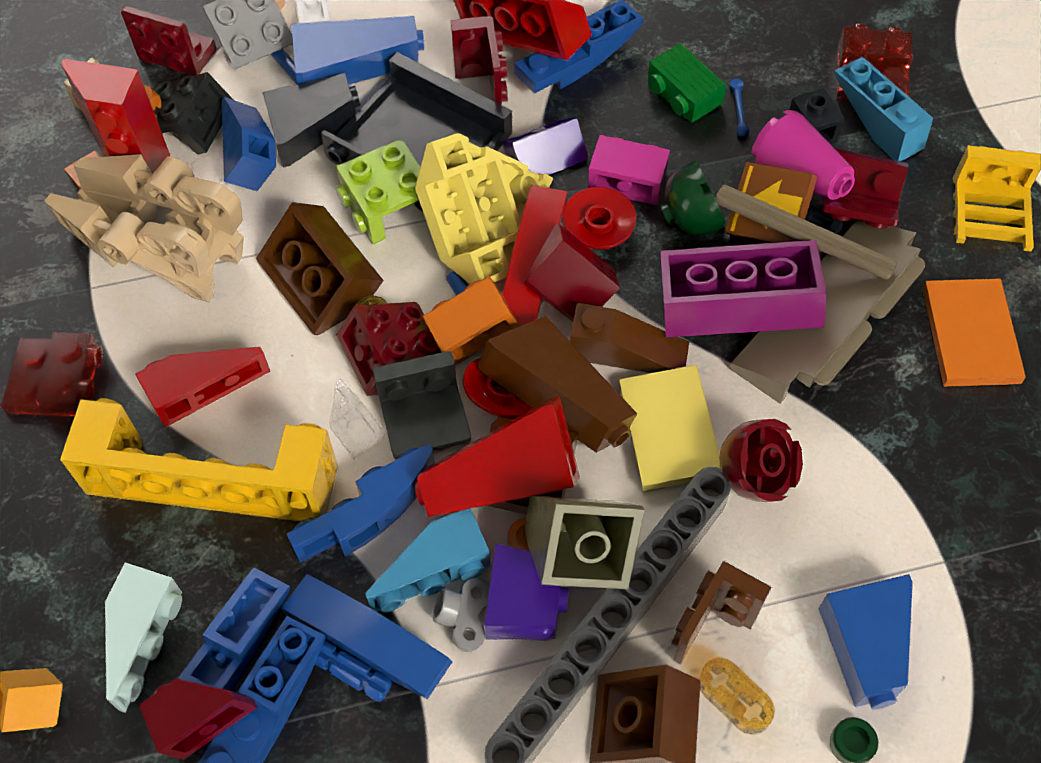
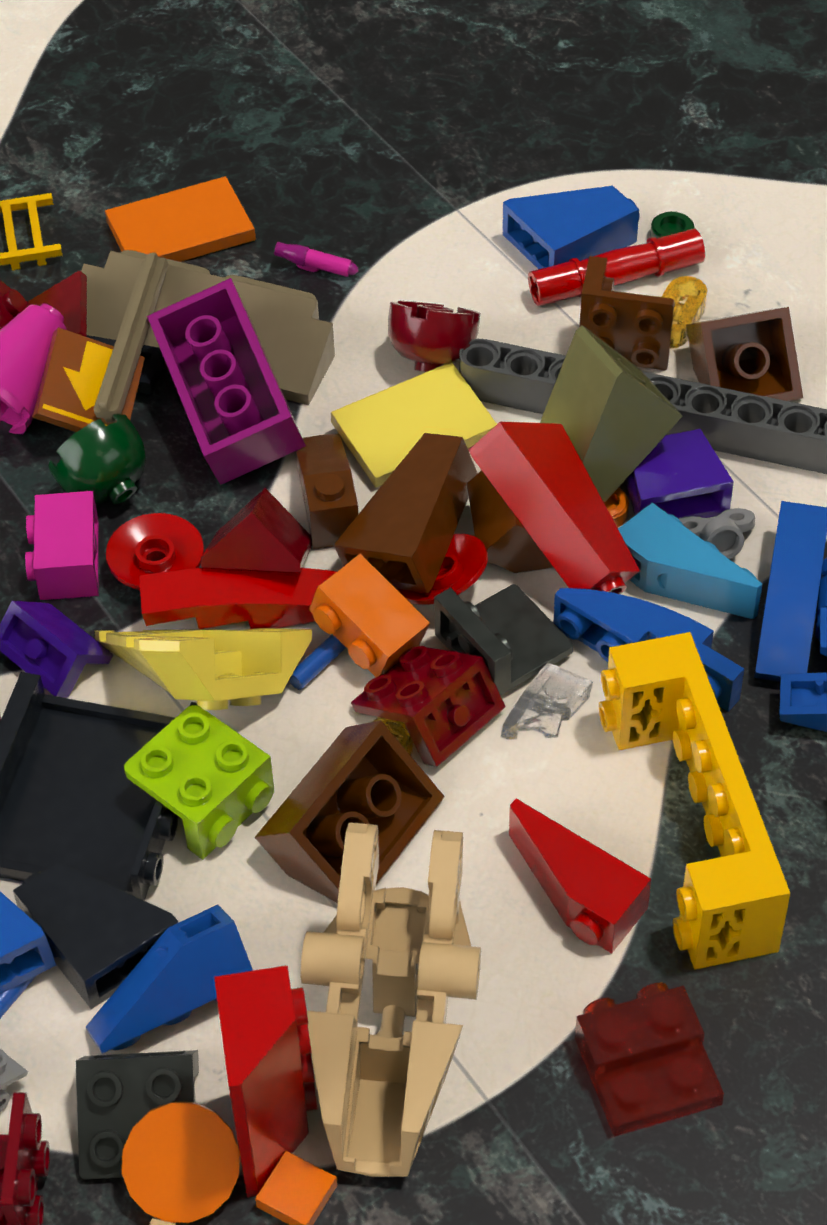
camera: 110 degrees left, 10 degrees down
(808, 662) = (623, 265): none -> red piece
(896, 418) = (314, 260): none -> piece

